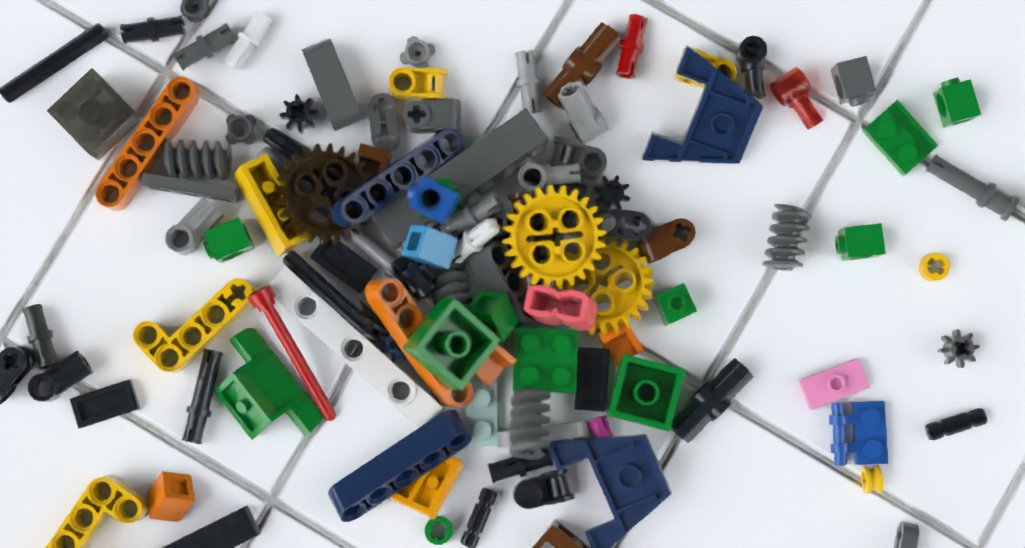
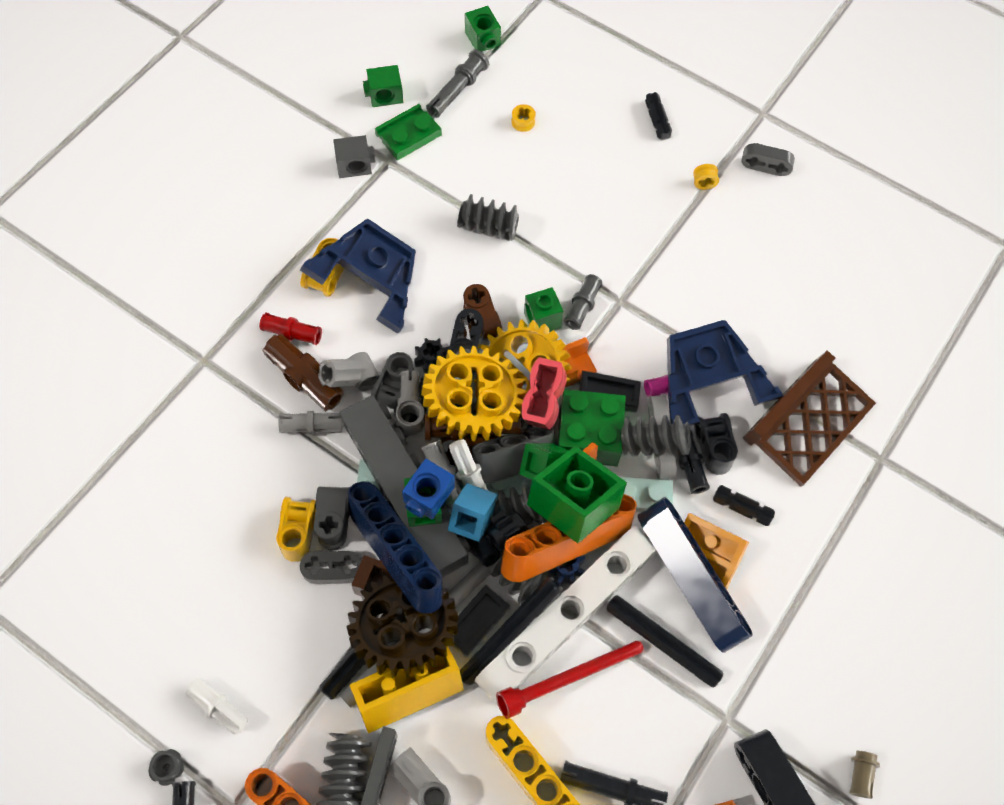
camera: 85 degrees left, 20 degrees down
(204, 46) = (214, 759): dark grey pin -> none
(228, 240) = (441, 744): green brick -> none
(233, 124) = (309, 715): dark grey plate -> none
(264, 389) = (609, 716): green plate -> none
(299, 105) = (313, 645): black gear -> none
(332, 84) = (281, 616): dark grey beam -> none
(337, 440) = (665, 641): none -> black axle
(414, 45) = (259, 519): light grey plate -> none
(448, 532) = (758, 535): green bush -> none
(645, 392) = (625, 341): green brick -> none
(694, 347) = (583, 302): none -> dark grey pin
(711, 400) = (633, 292): black piece -> none
(753, 68) = (325, 229): black pin -> none
(793, 90) = (355, 203): clear red pin -> none
(834, 384) = (621, 199): bright pink plate -> none
(860, 242) = (498, 164): green brick -> none
(869, 433) = (664, 178): blue plate -> none
(967, 348) = (595, 105): dark grey gear -> none

